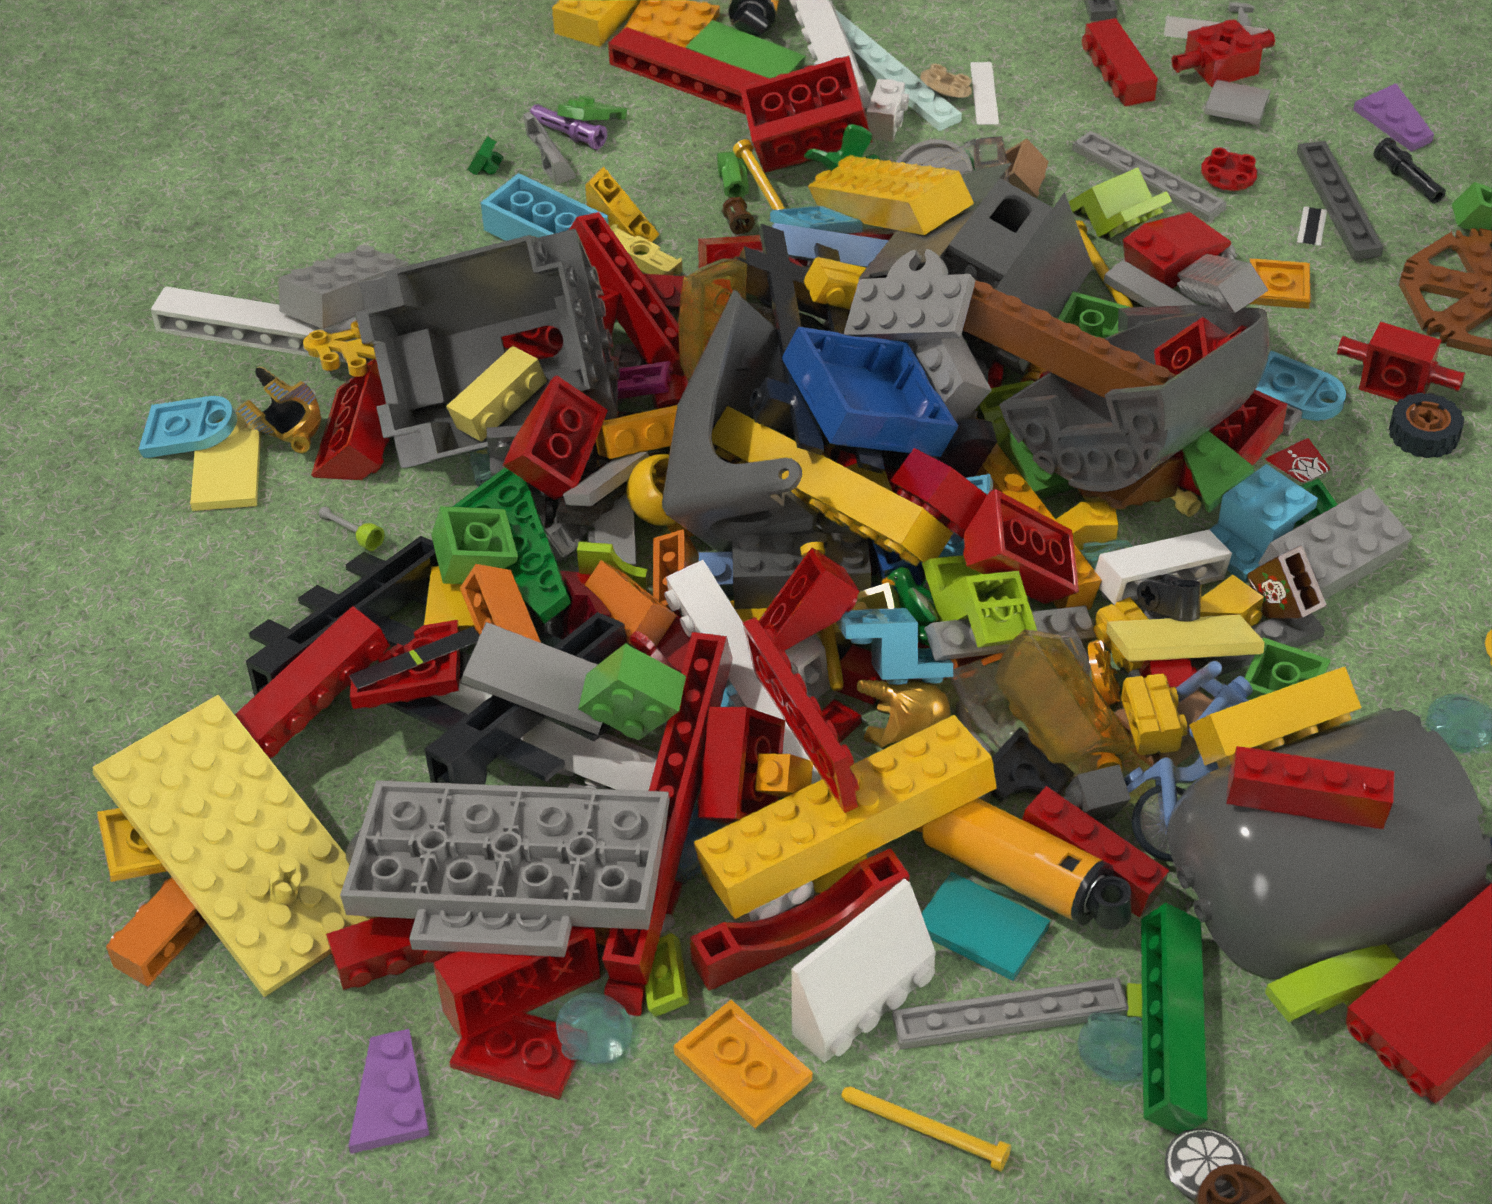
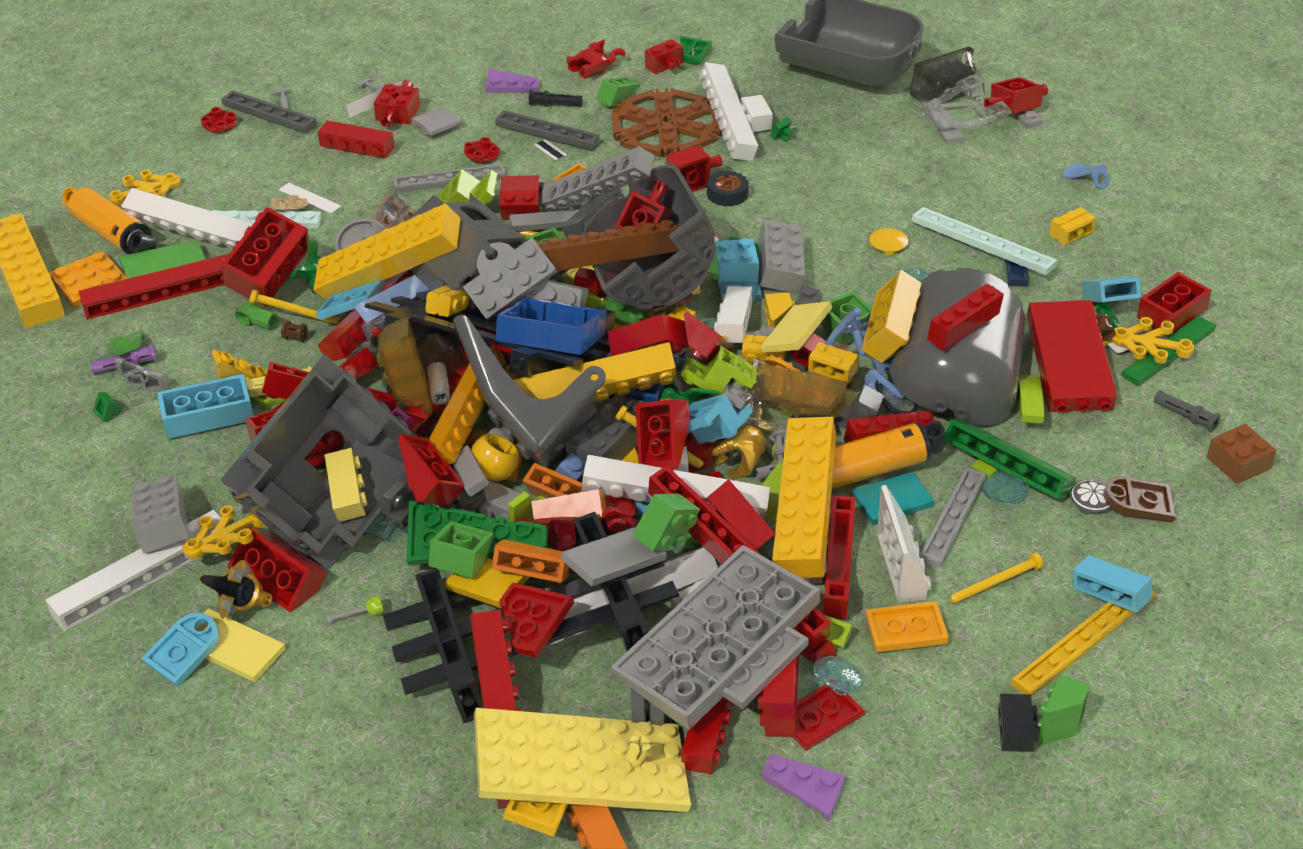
camera: 55 degrees left, 5 degrees down
(414, 657) = (529, 610): black sticker -> none
(782, 774) = (762, 501): light orange brick -> none
(802, 714) = (746, 464): red plate -> none
(1171, 597) = (767, 315): black piece -> none
(1287, 586) = (793, 279): reddish brown torso -> none

